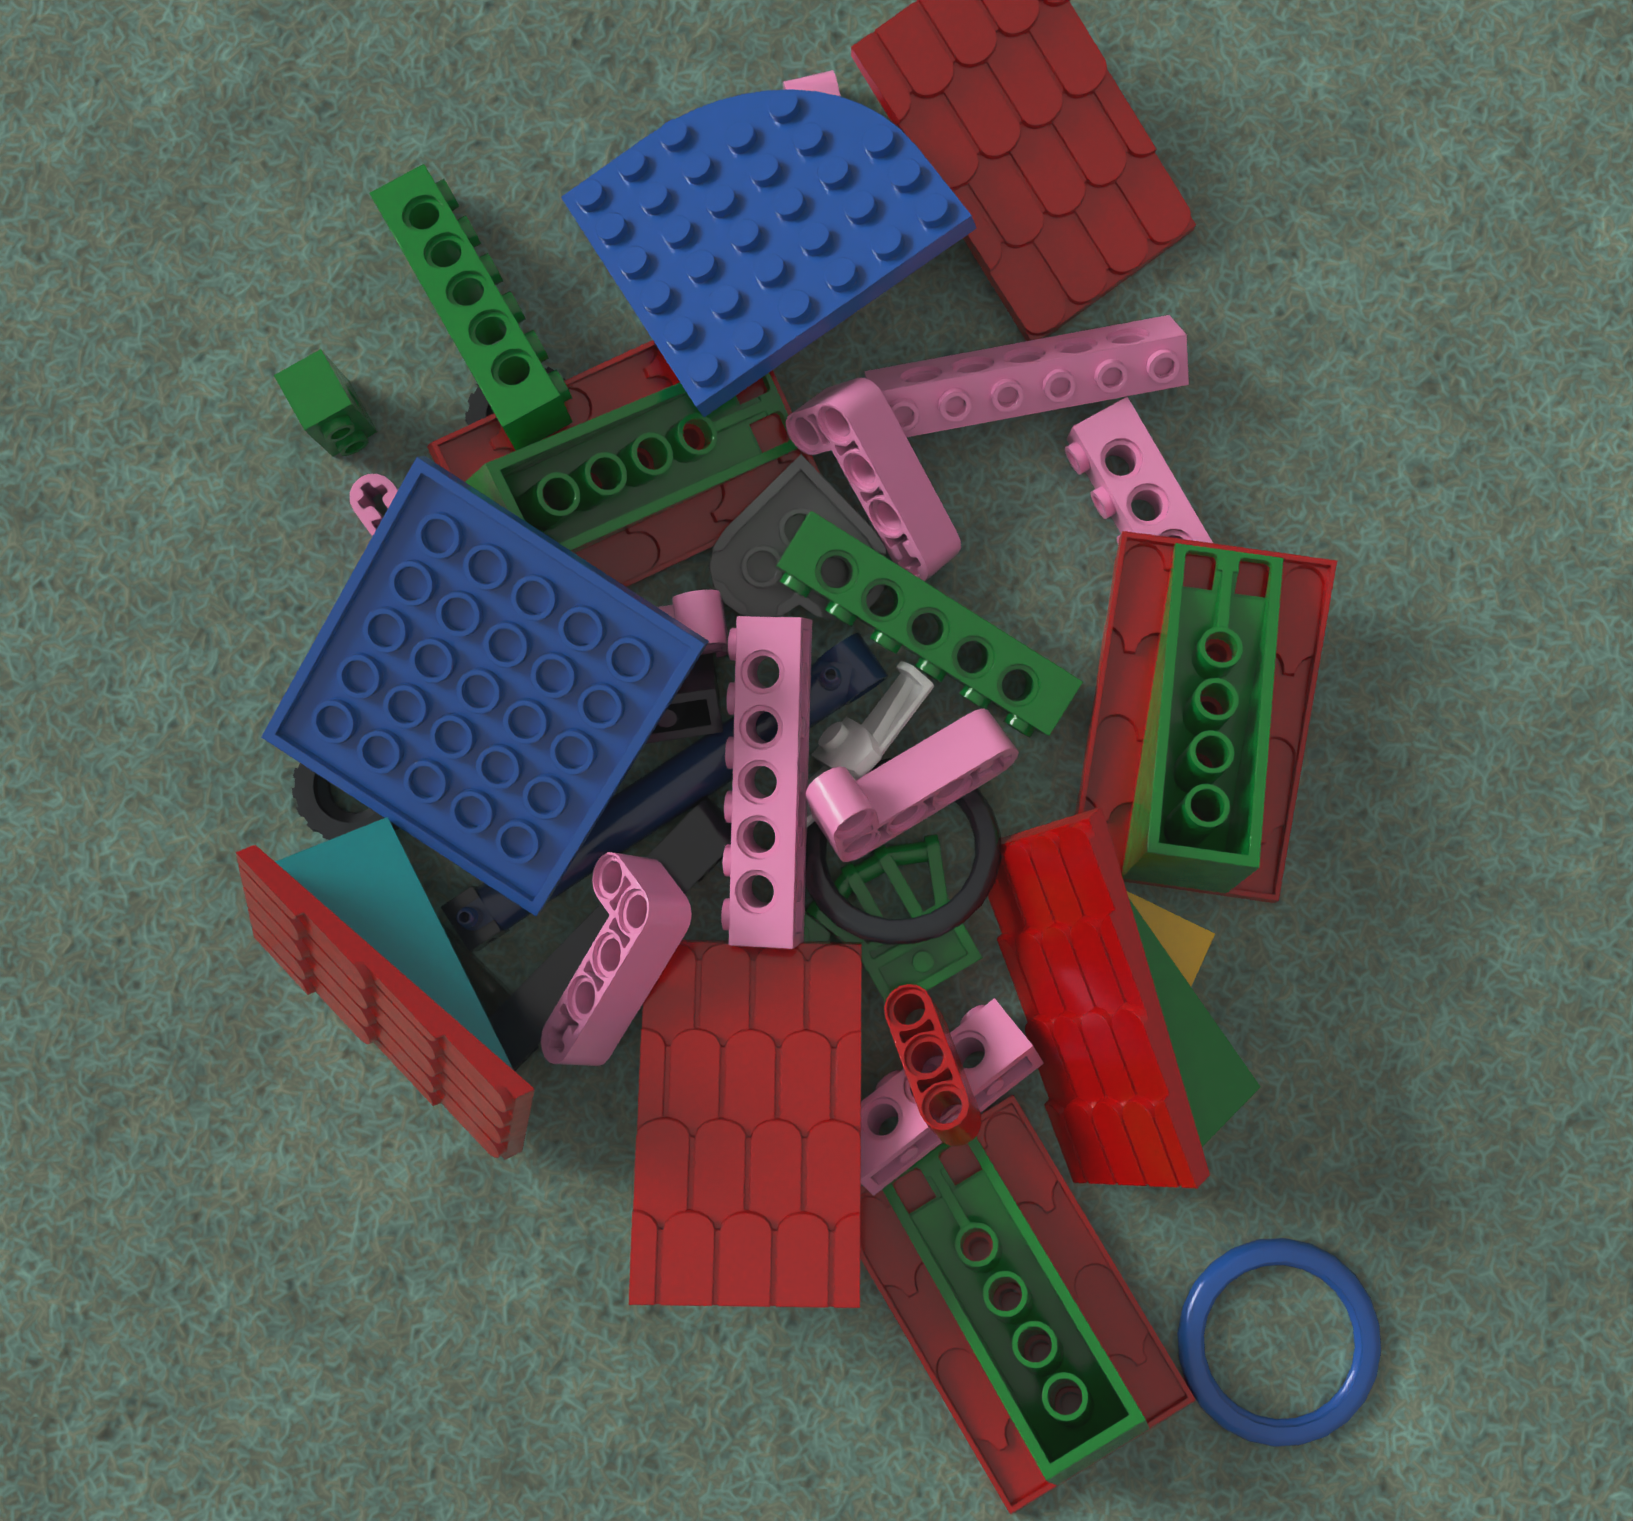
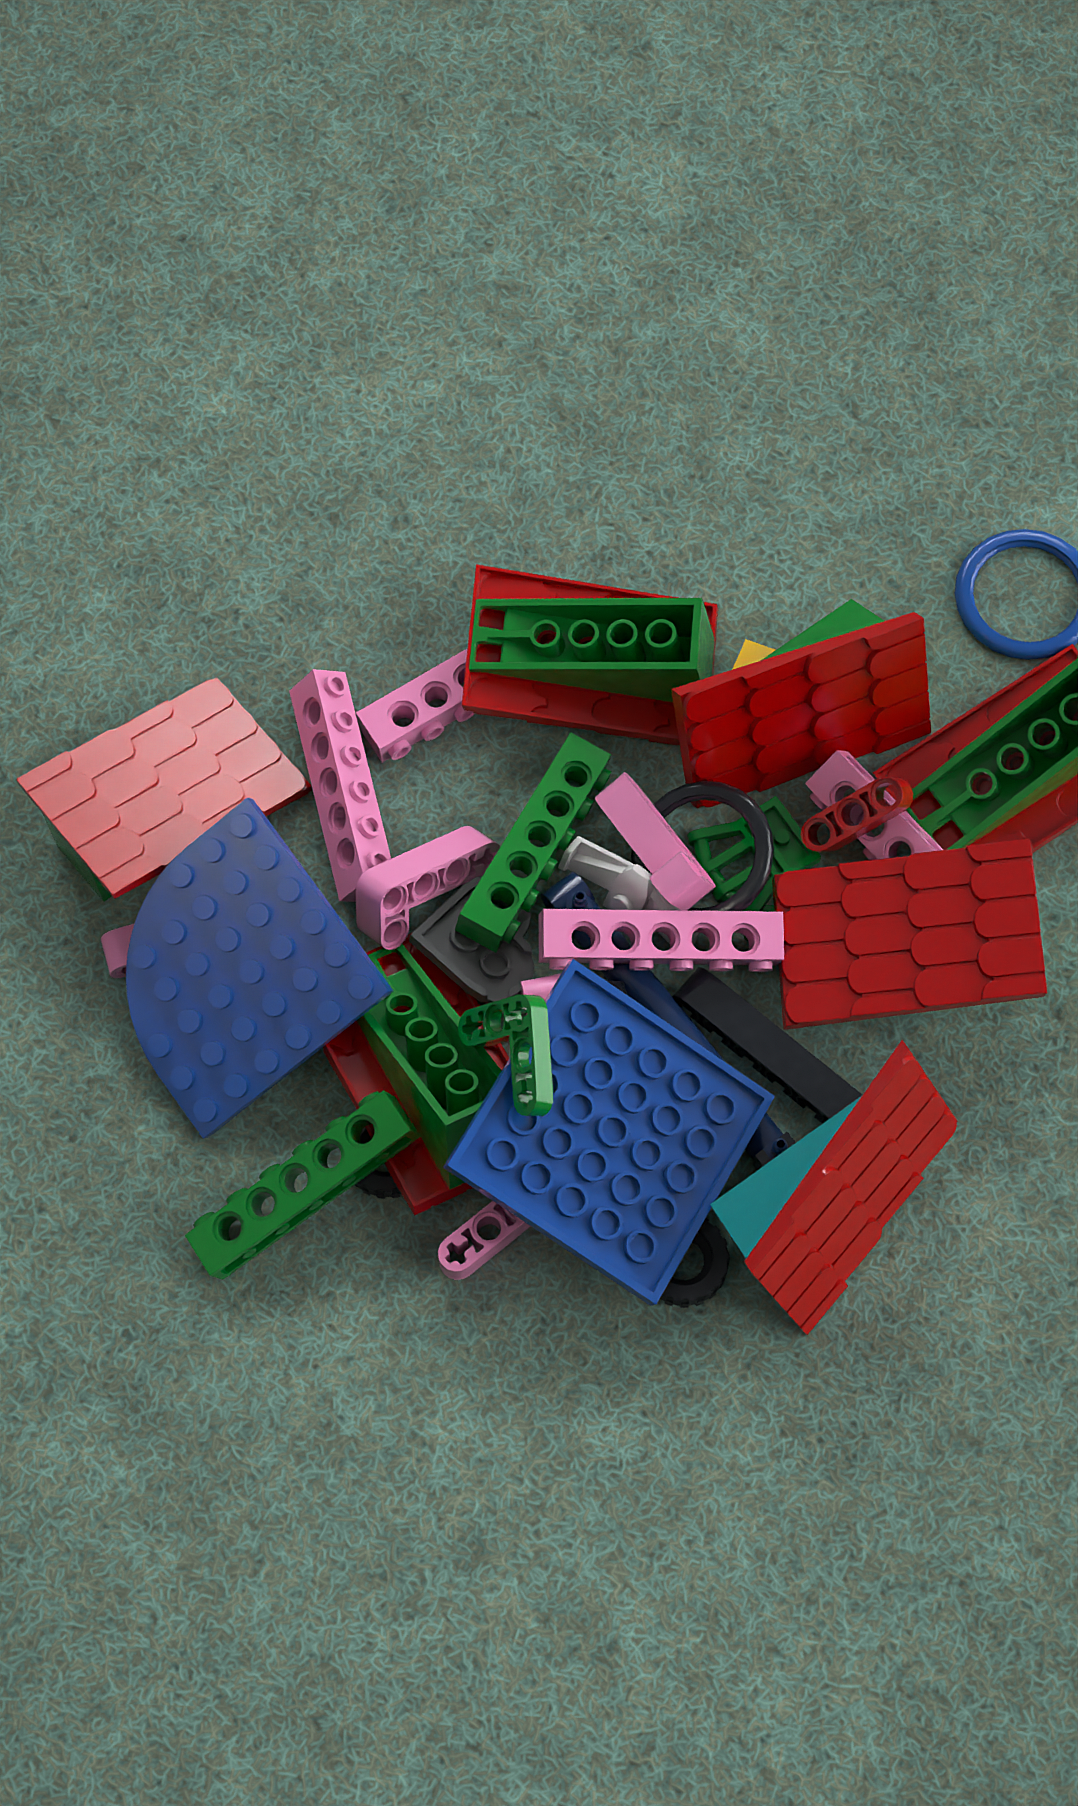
camera: 95 degrees left, 15 degrees down
(326, 404) = (385, 1292): green brick -> none
(606, 567) = (530, 1082): none -> green beam
(623, 963) = (808, 1042): bright pink beam -> none

